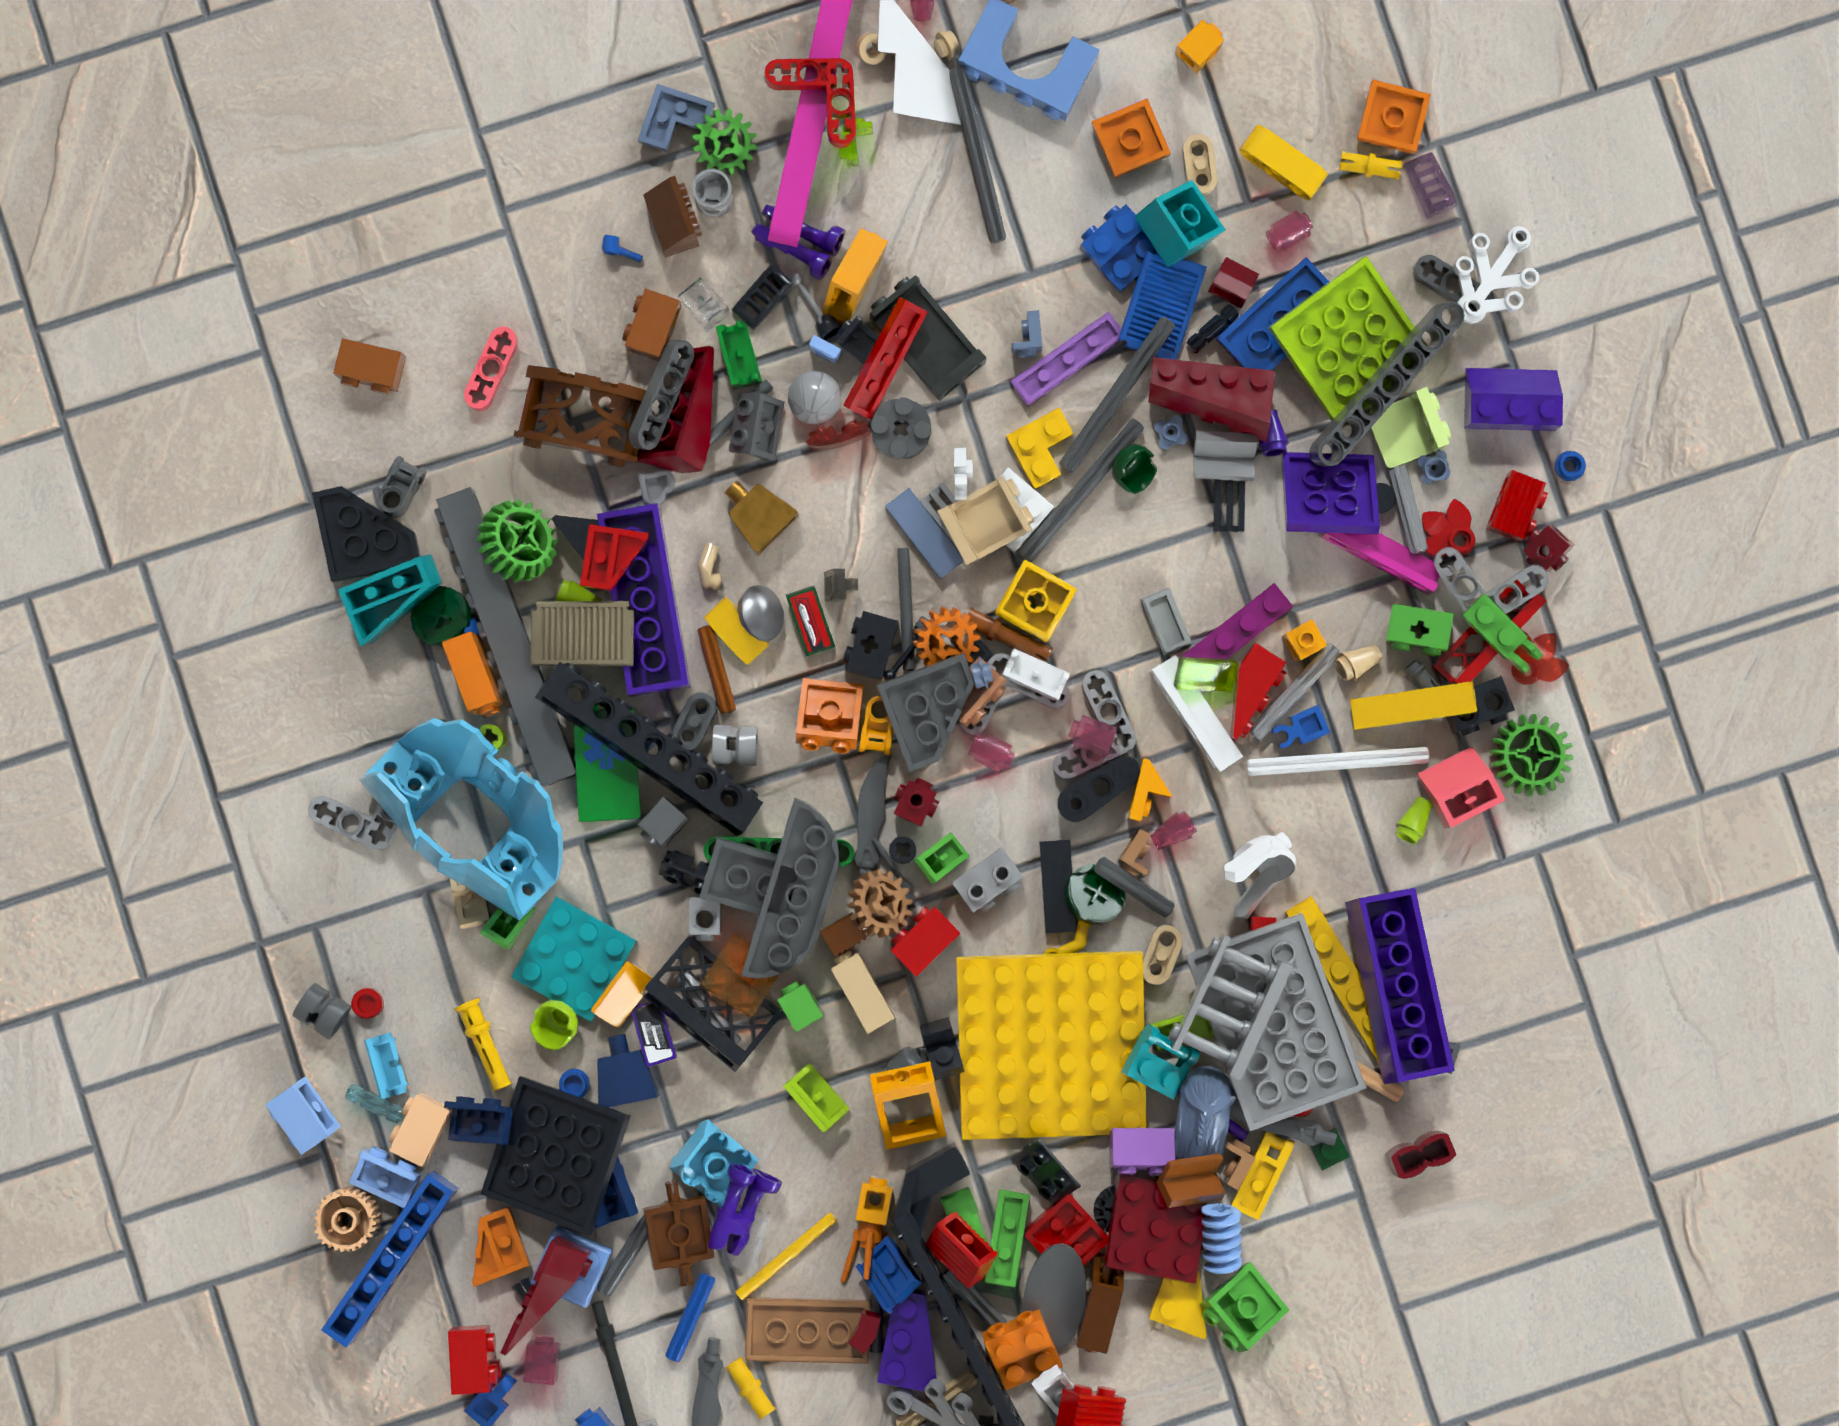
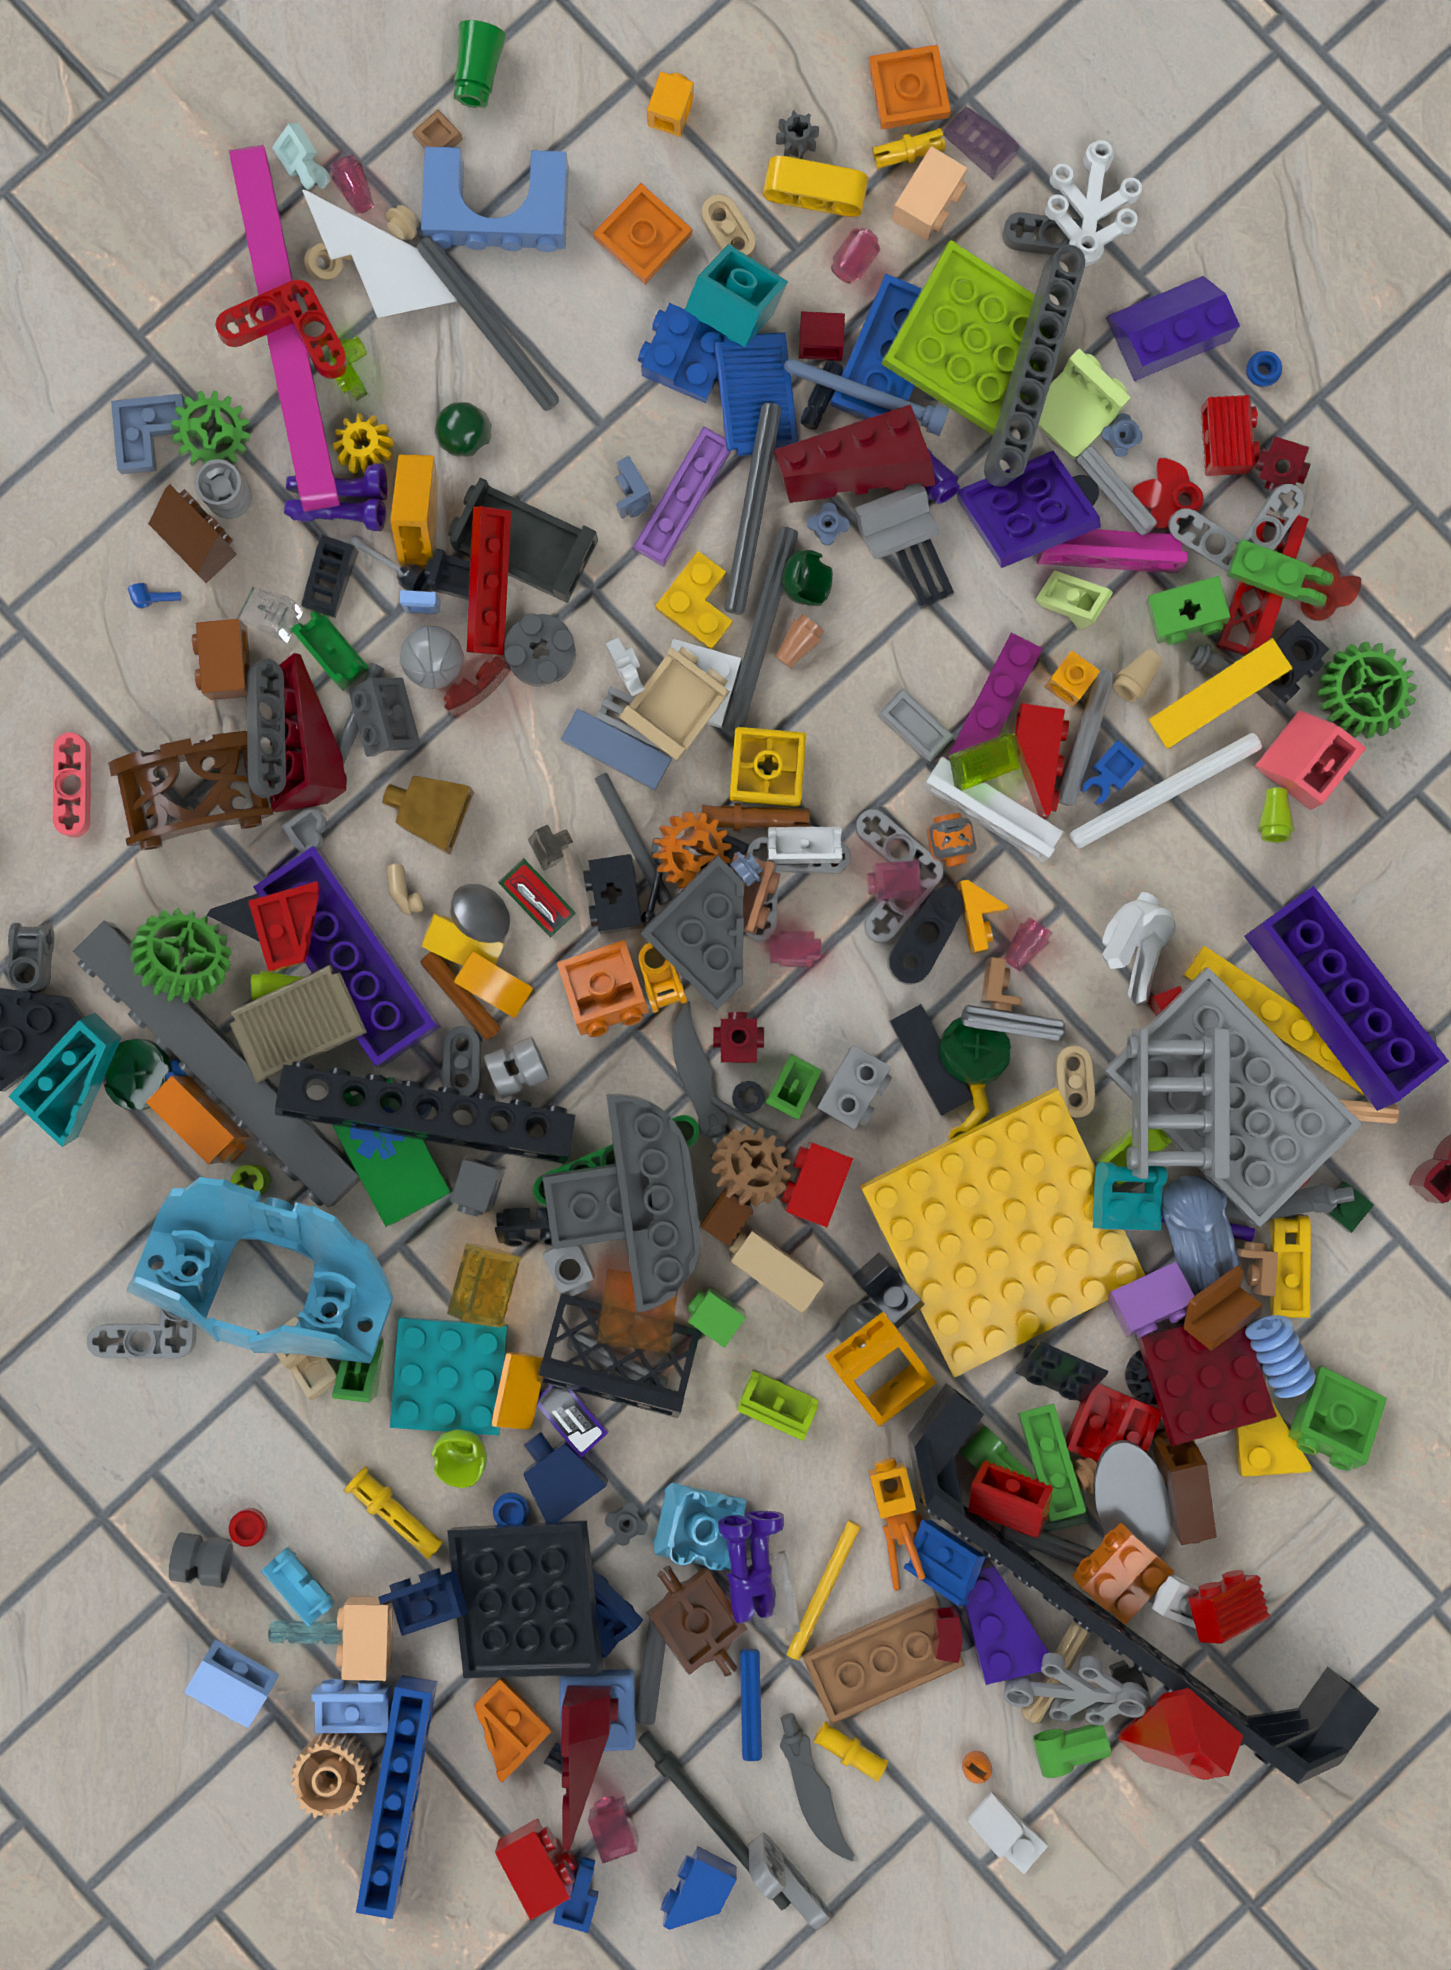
camera: 25 degrees left, 0 degrees up
(635, 902) = (484, 1285): none -> clear yellow brick
(652, 1140) = (630, 1513): none -> dark grey plate
(746, 673) = (493, 984): none -> light orange slope
(849, 205) = (356, 433): none -> yellow gear
(919, 228) = (462, 429): none -> dark green hair
(1027, 1259) = (1085, 1473): none -> medium nougat plate
(1105, 514) = (799, 640): none -> nougat cone
(1153, 723) = (951, 839): none -> head
(1288, 386) = (931, 417): none -> sand blue piece
(1295, 115) = (797, 145): none -> dark grey gear
(1334, 578) = (1074, 598): none -> yellowish green slope
(1370, 209) = (929, 194): none -> light nougat brick

